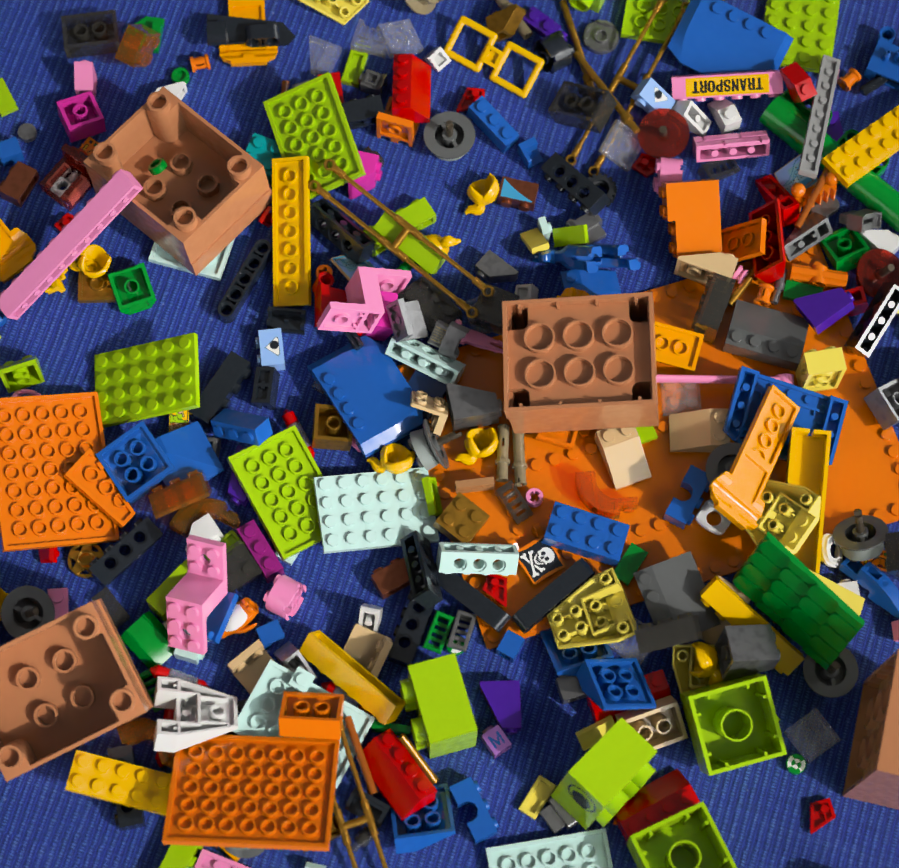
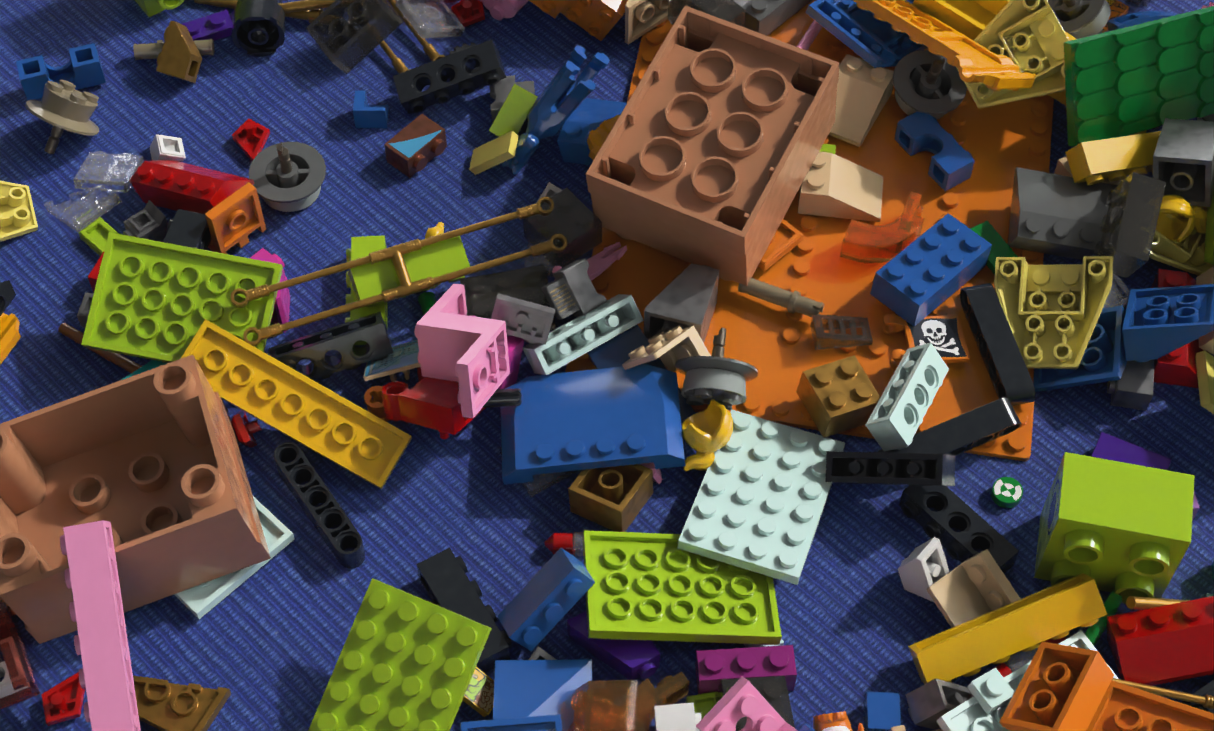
camera: 60 degrees left, 15 degrees down
(92, 262) = (156, 683): yellow hair -> none
(132, 289) = (227, 655): green slope -> none
(157, 166) = (70, 517): green tile -> none
(265, 387) = (497, 549): black hinge -> none
(271, 349) = (444, 518): light blue brick -> none
(284, 596) = (837, 666): bright pink brick -> none
(289, 320) = (412, 480): black hinge -> none
(322, 55) = (60, 269): clear wing -> none
(360, 755) = (1153, 678): dark orange bar -> none
(391, 578) = (873, 519): copper brick -> none
(432, 496) = (781, 418): lime tile -> none
(438, 614) = (985, 497): green slope -> none
(467, 617) = (984, 455): flat silver slope -> none
(474, 485) = (793, 361): medium nougat tile -> none
(478, 444) = (743, 327): yellow hair -> none
(482, 193) = (390, 177): yellow hair -> none
(492, 124) = (307, 124): blue brick -> none
(493, 56) = (214, 87): yellow bar -> none
(494, 269) = (499, 205): flat silver slope -> none
(496, 588) = (952, 403): red piece -> none
(502, 453) = (774, 317): dark tan pin -> none
(510, 646) = (1046, 424): blue panel -> none
(528, 497) = (849, 301): bright pink bush -> none
(544, 227) = (479, 136): light aqua plate -> none
(701, 519) = (976, 125): white piece -> none

